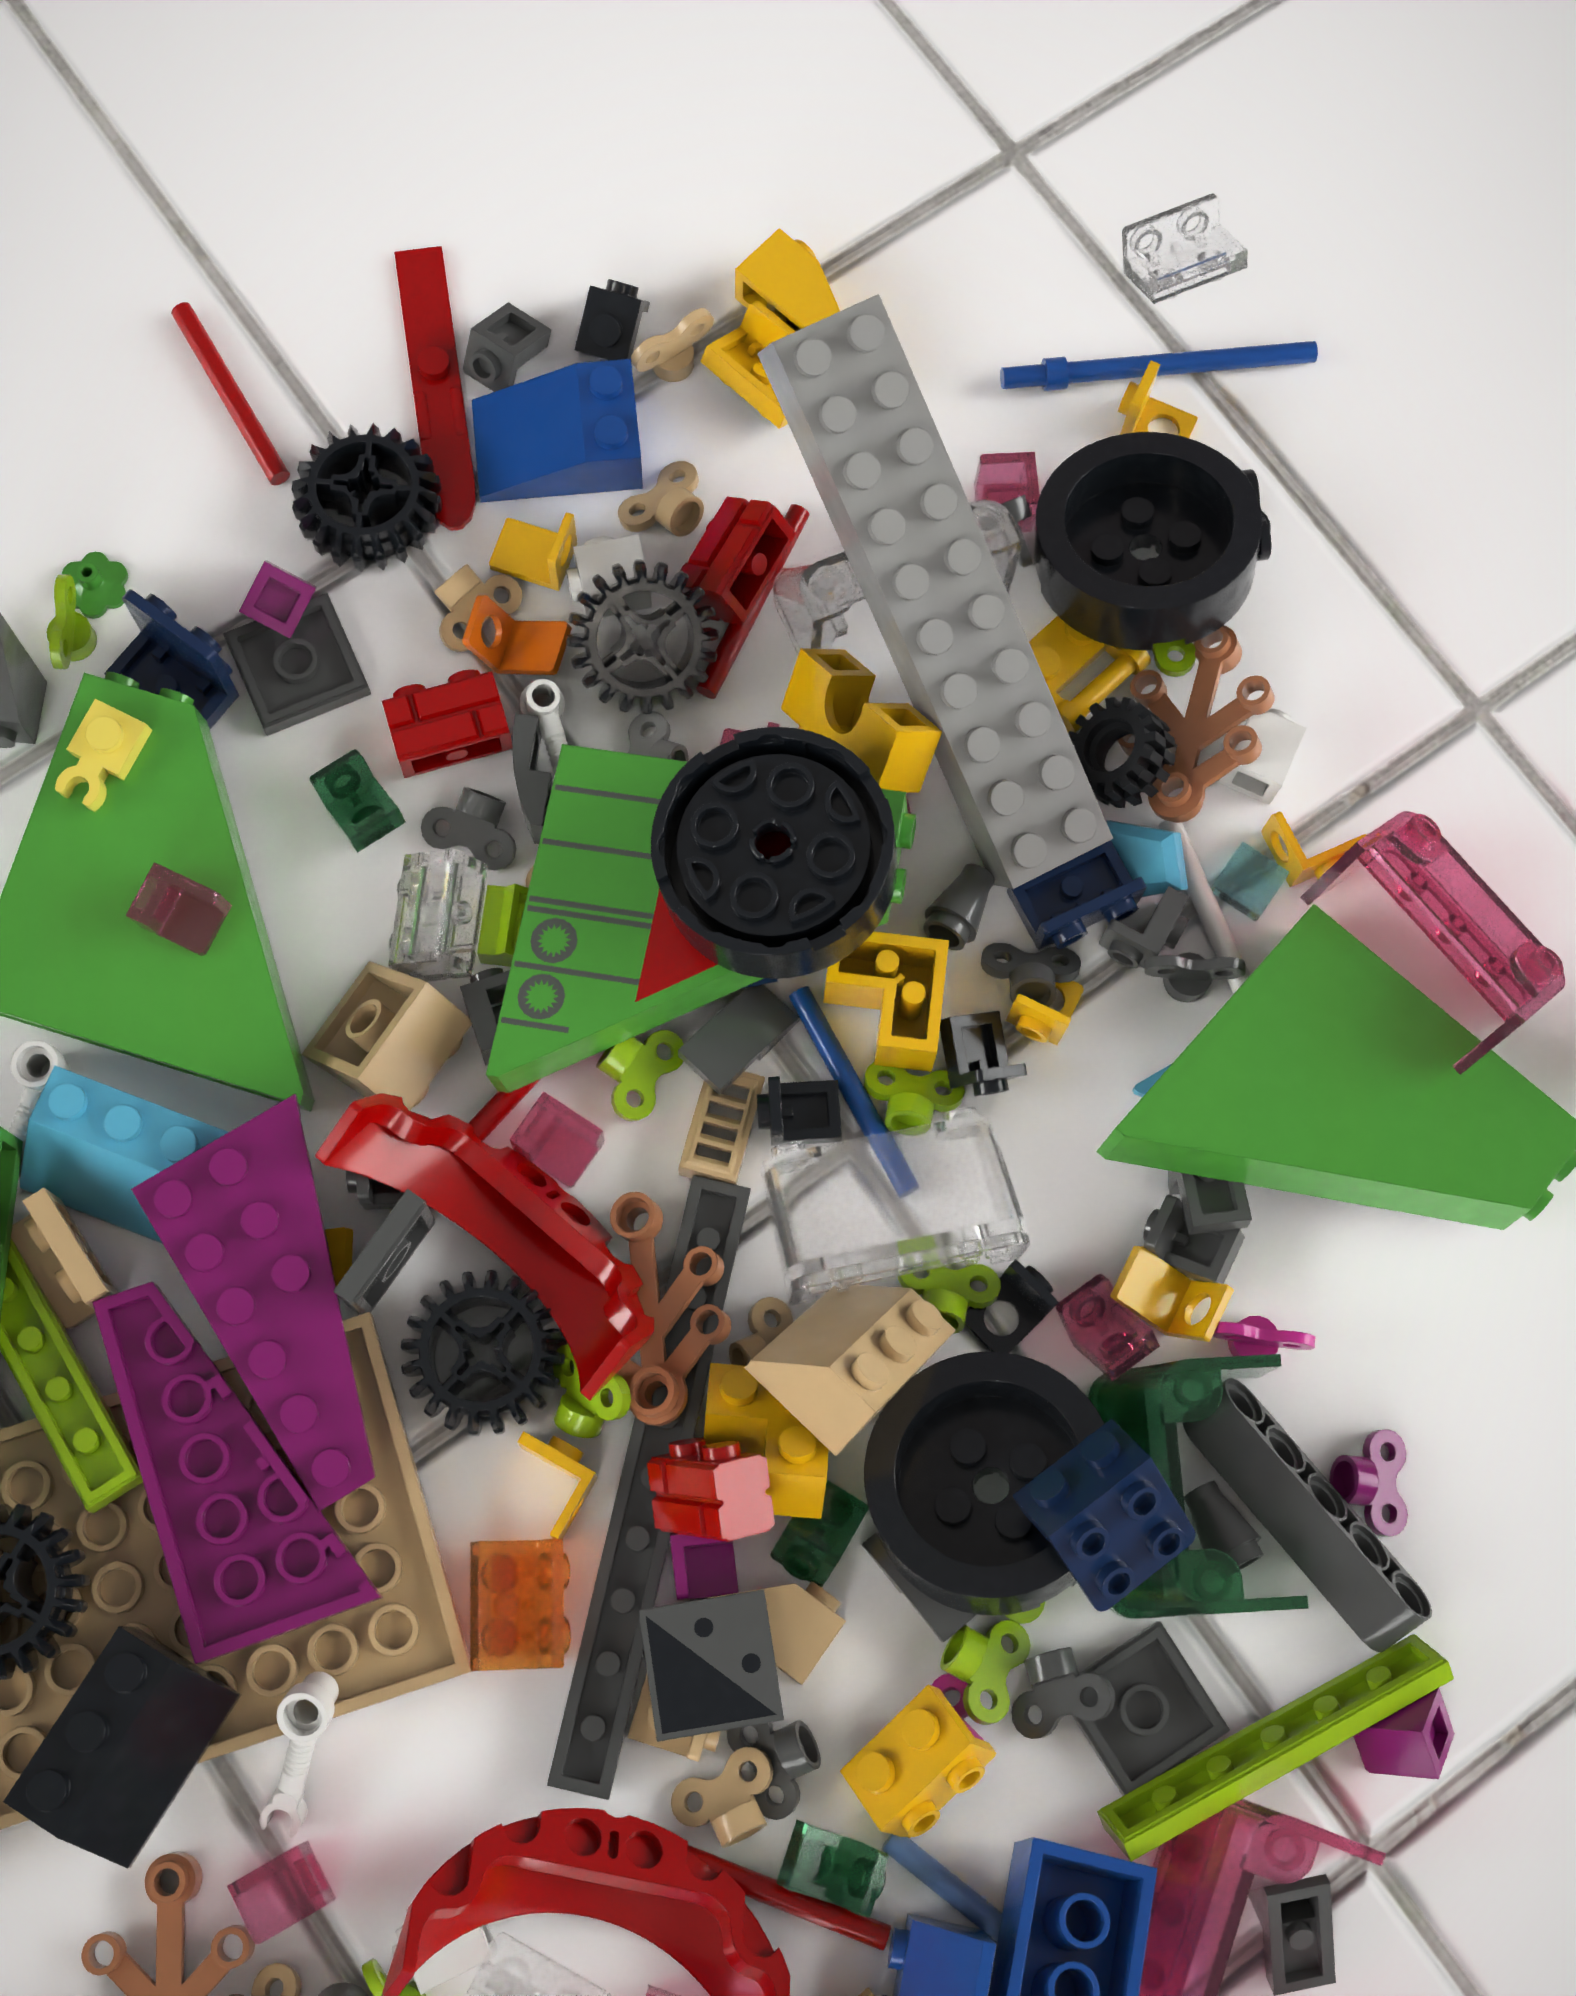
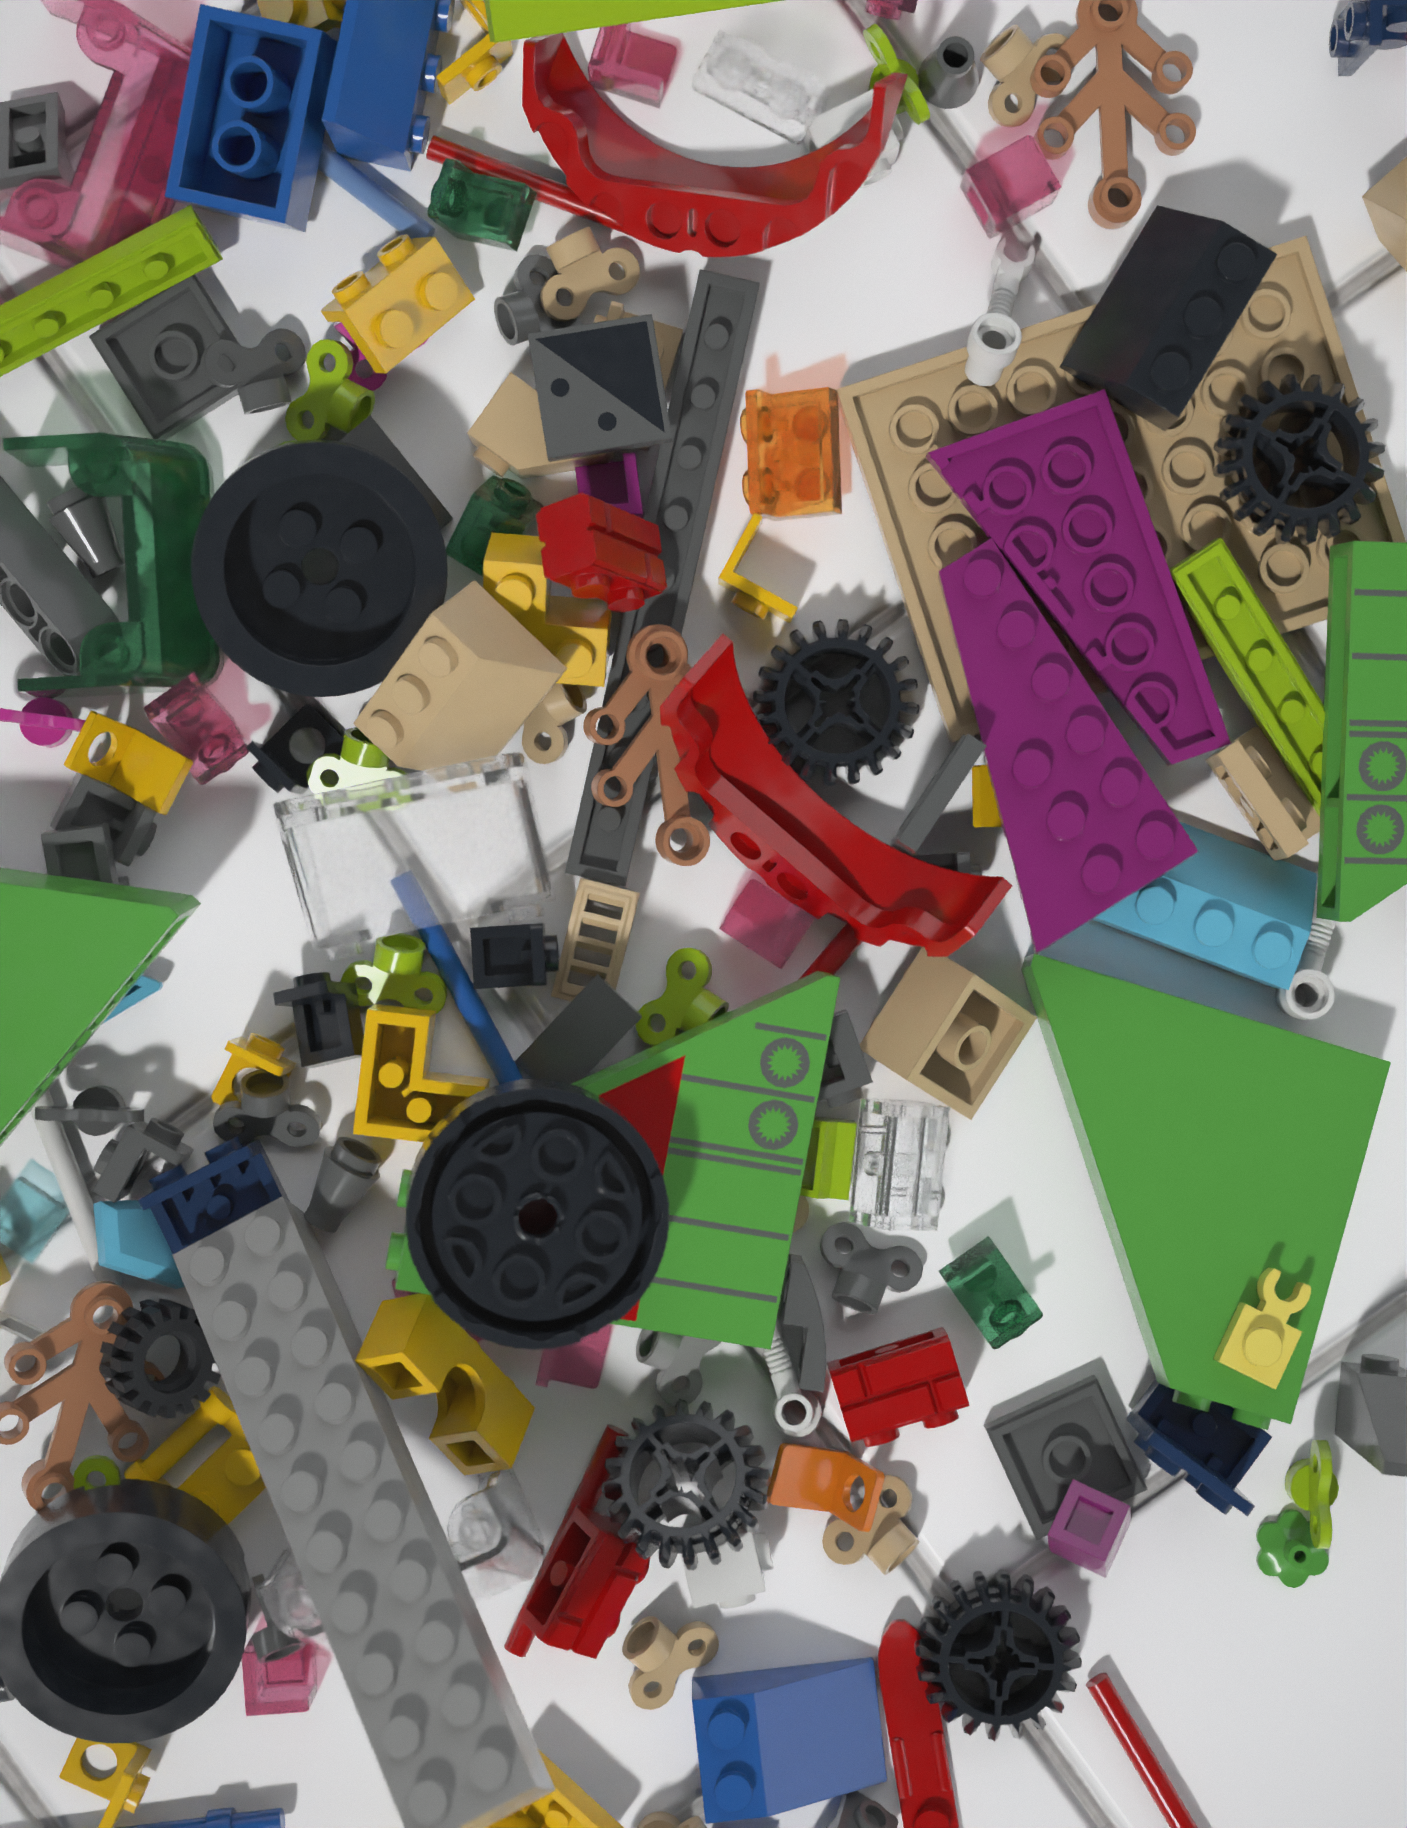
camera: 175 degrees left, 15 degrees up
(179, 909) = (1170, 1154): clear pink panel -> none
(535, 552) = (810, 1592): yellow bracket -> none
(579, 1415) = (746, 642): lime piece -> none
(1107, 1515) = (202, 523): dark blue bracket -> none

